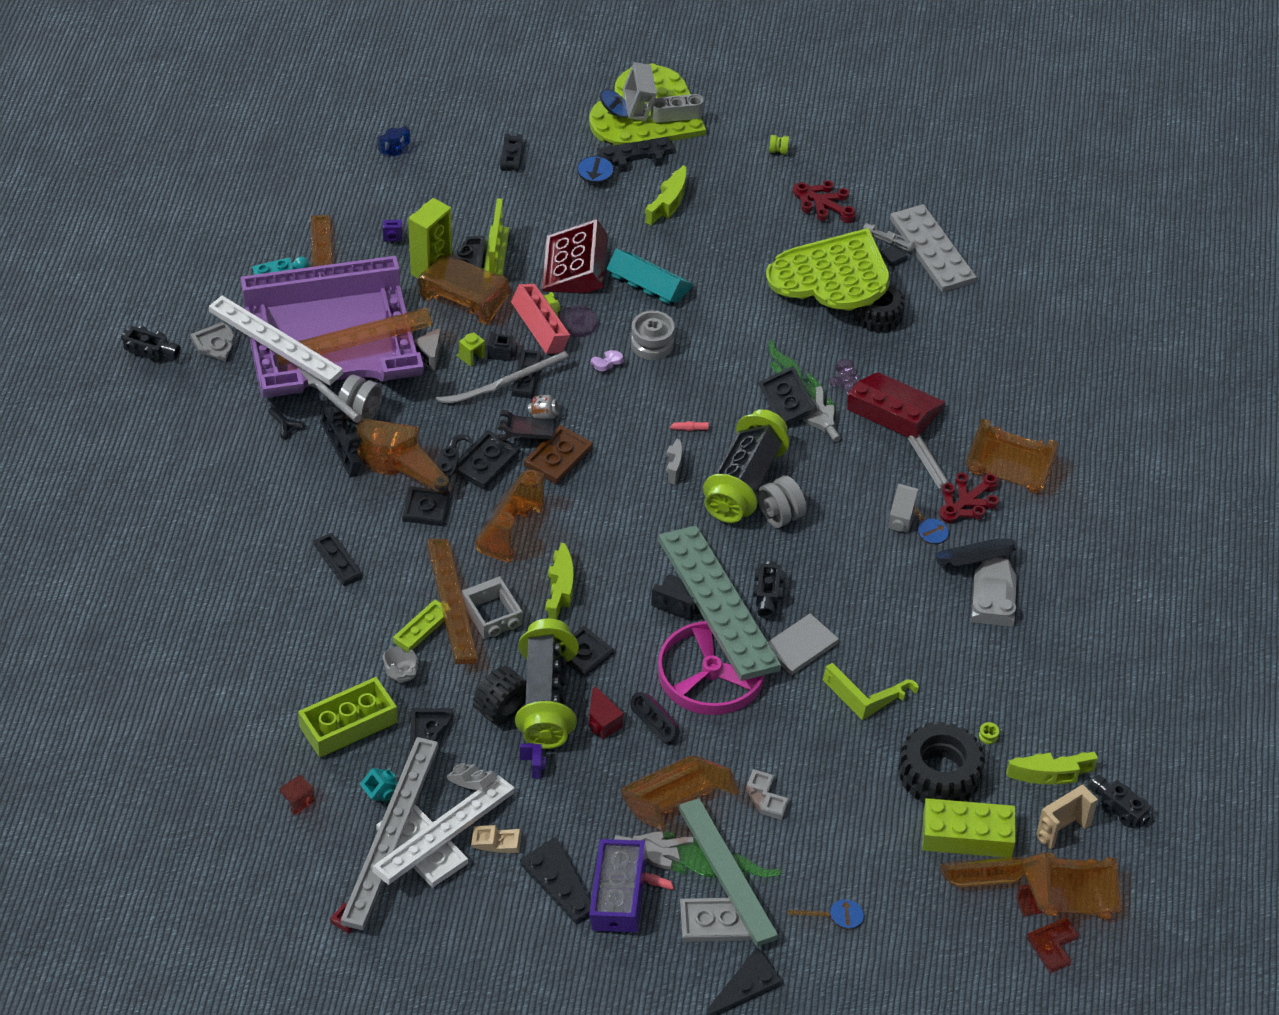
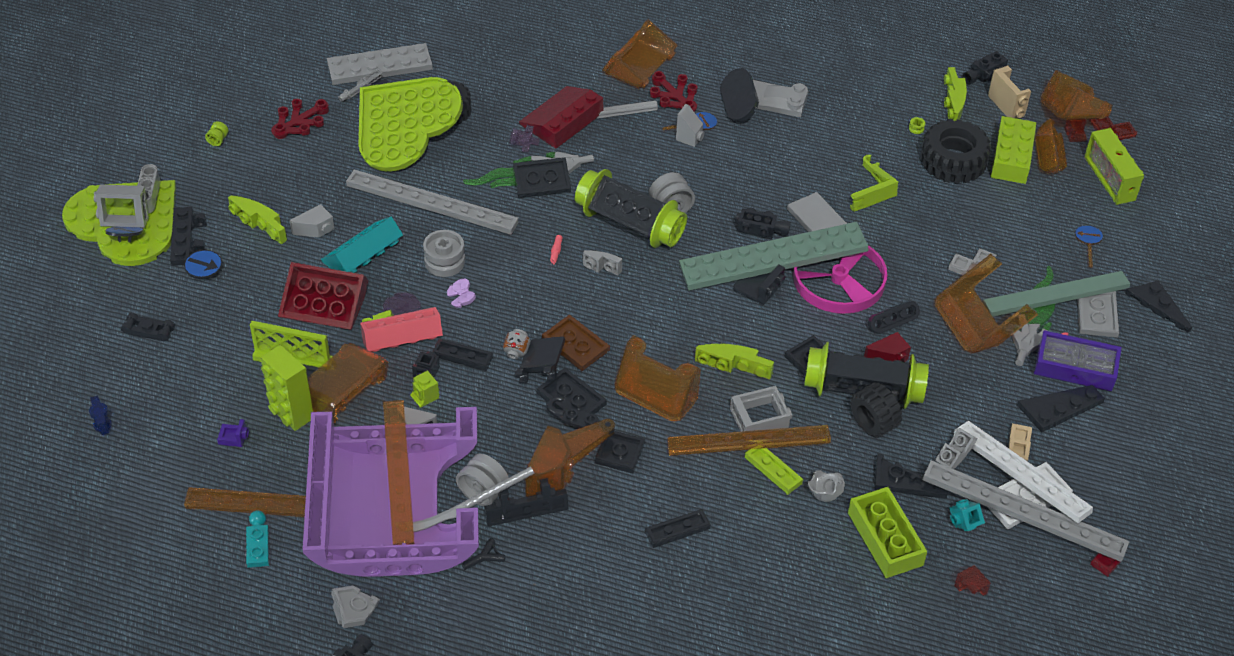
camera: 80 degrees left, 0 degrees up
(276, 340) = (390, 537): white plate -> none
(505, 380) = (478, 376): light grey piece -> none
(533, 753) = (936, 402): dark purple bracket -> none
(674, 236) = (312, 223): none -> light grey slope
(728, 320) = (432, 202): none -> light grey plate
(961, 928) = (1114, 166): none -> lime brick

